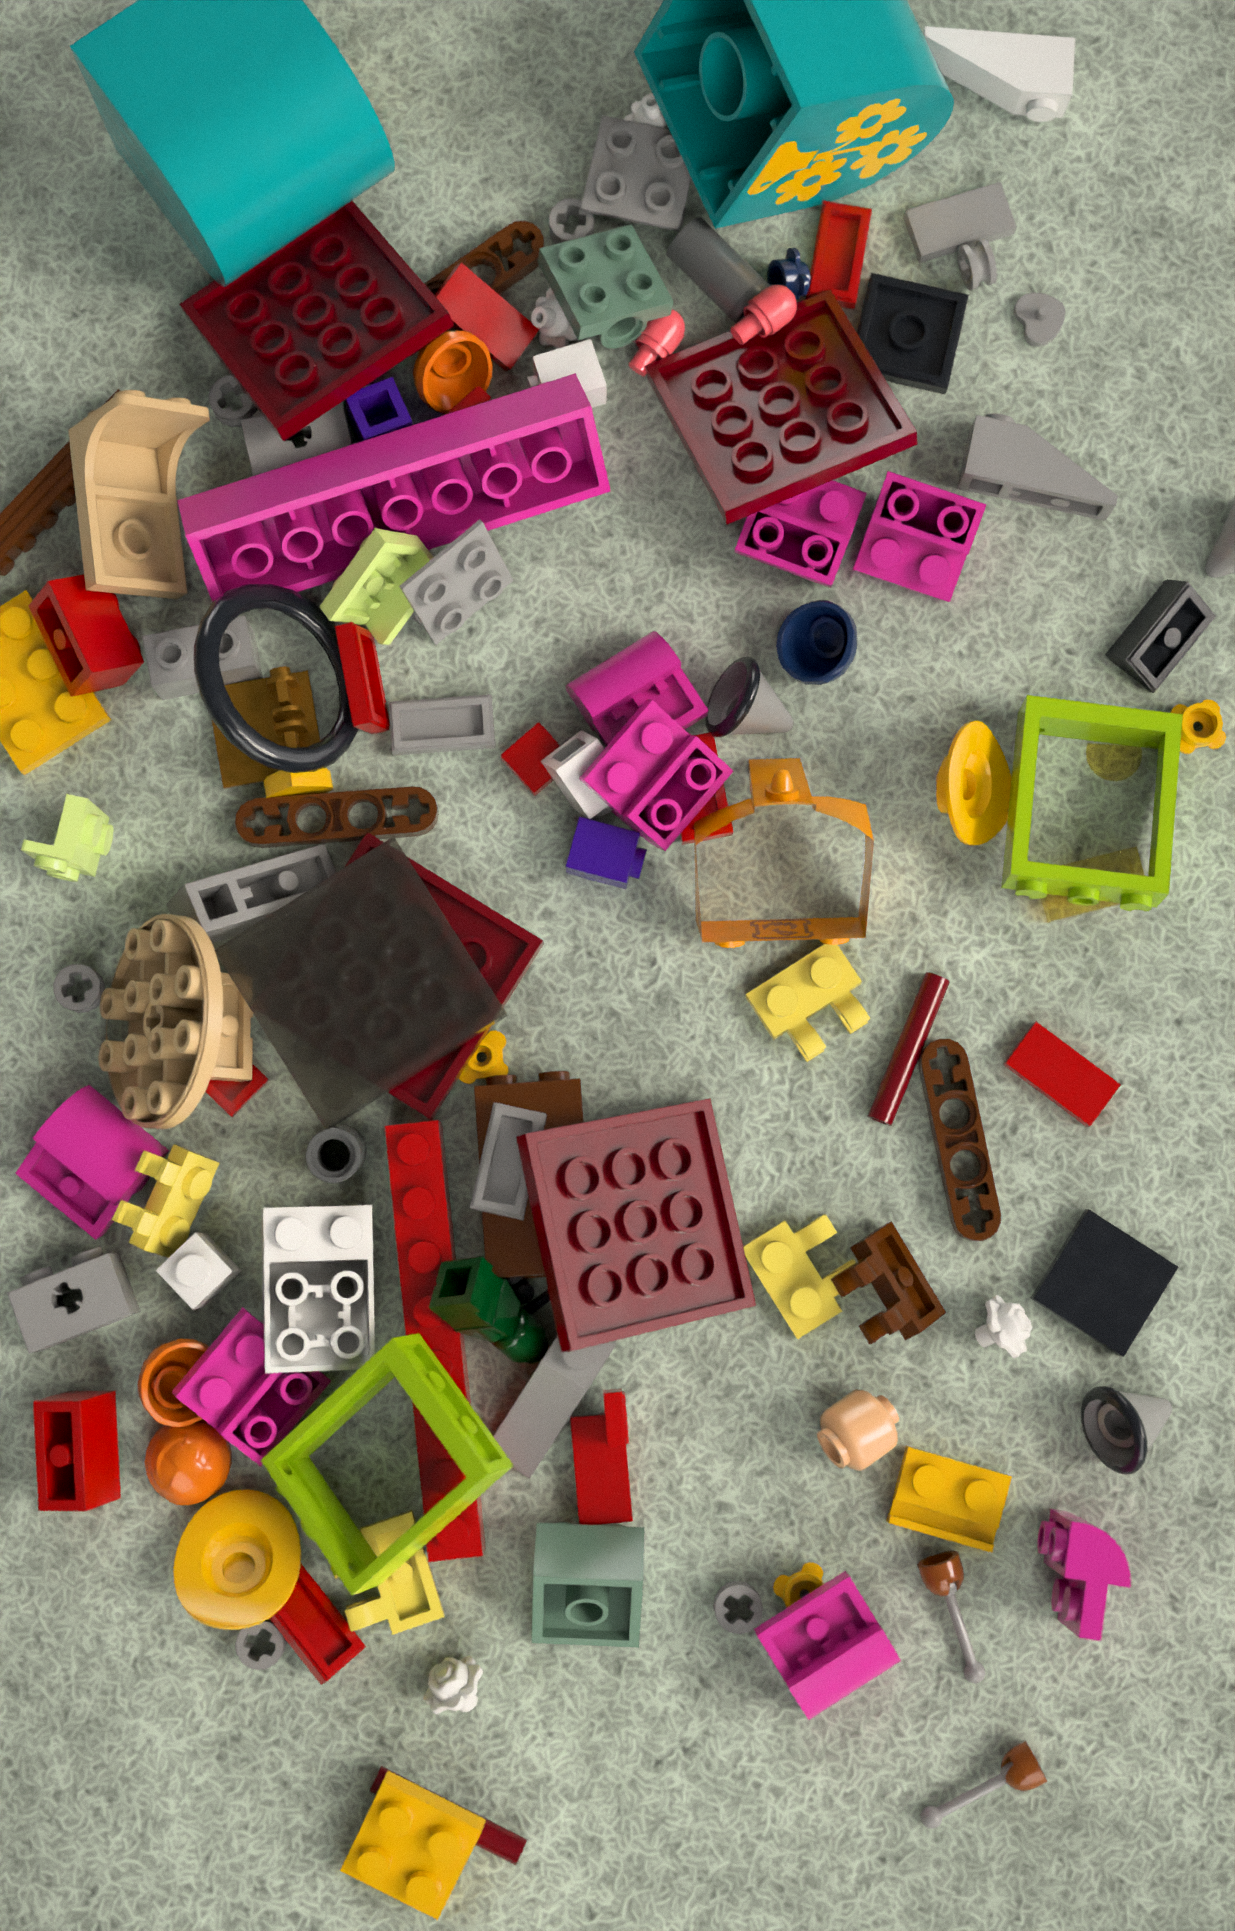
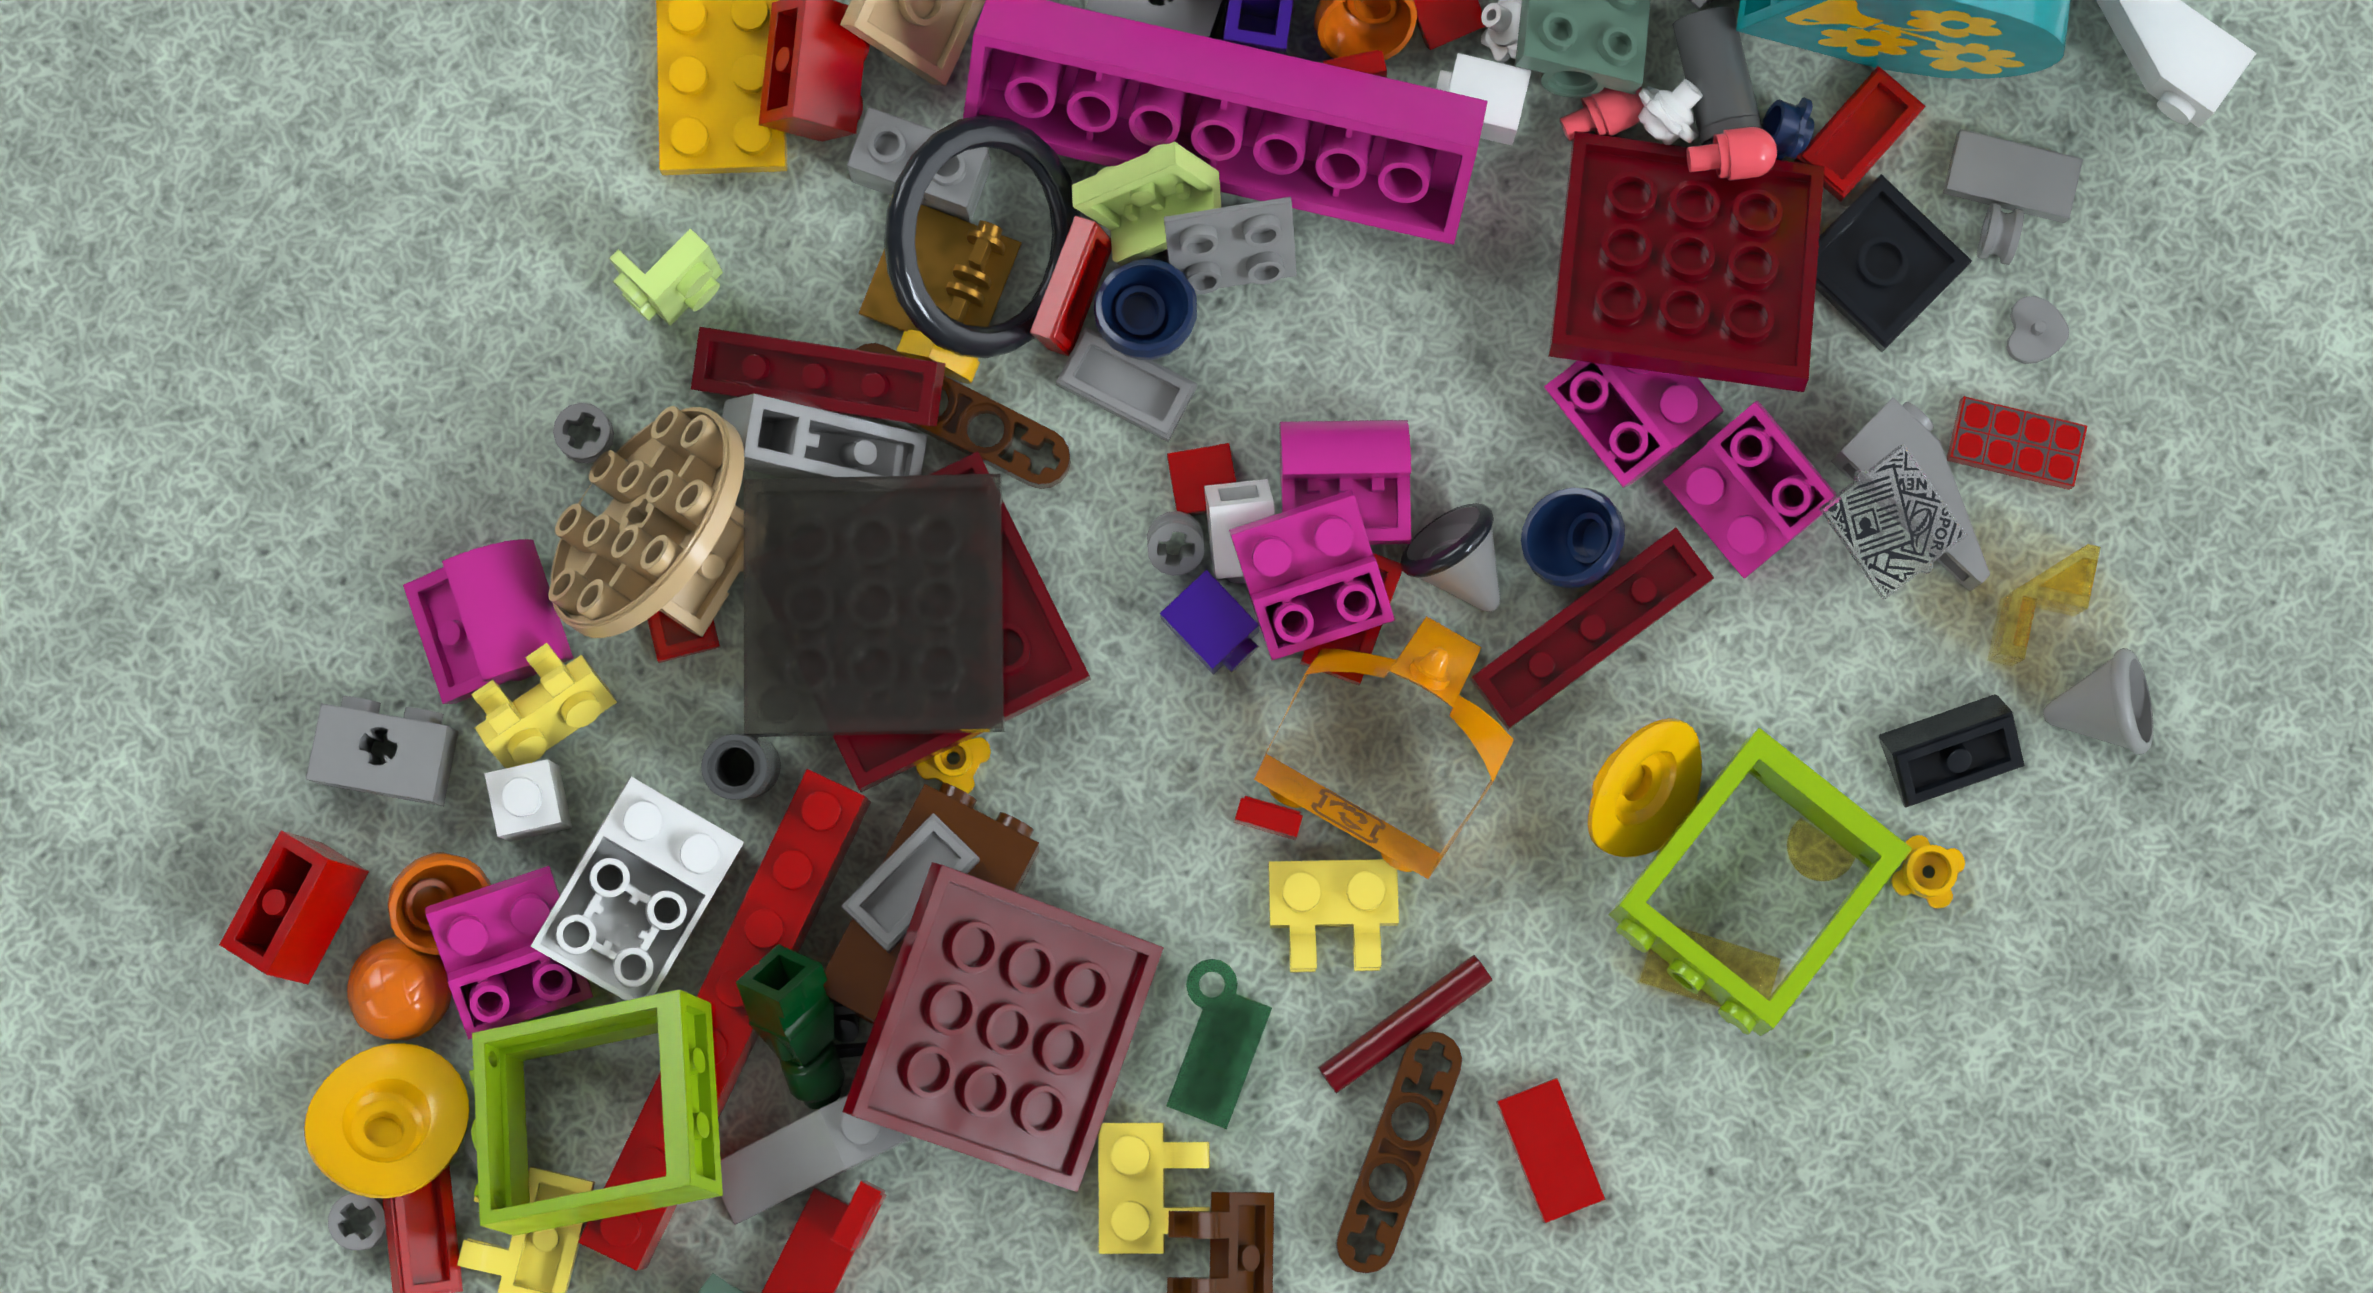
camera: 35 degrees right, 0 degrees up
(222, 845) = (819, 376): none -> dark red plate
(424, 662) = (1145, 309): none -> dark blue piece
(559, 817) = (1189, 555): none -> light grey bush
(702, 314) = (1669, 113): none -> white plant
(727, 963) = (1268, 817): none -> red tile
(792, 1145) = (1218, 1049): none -> clear green hinge
(868, 698) = (1591, 628): none -> dark red plate
(1032, 497) = (1893, 521): none -> clear piece
(1075, 400) = (2016, 443): none -> red tile
(1167, 480) = (2059, 589): none -> clear yellow slope

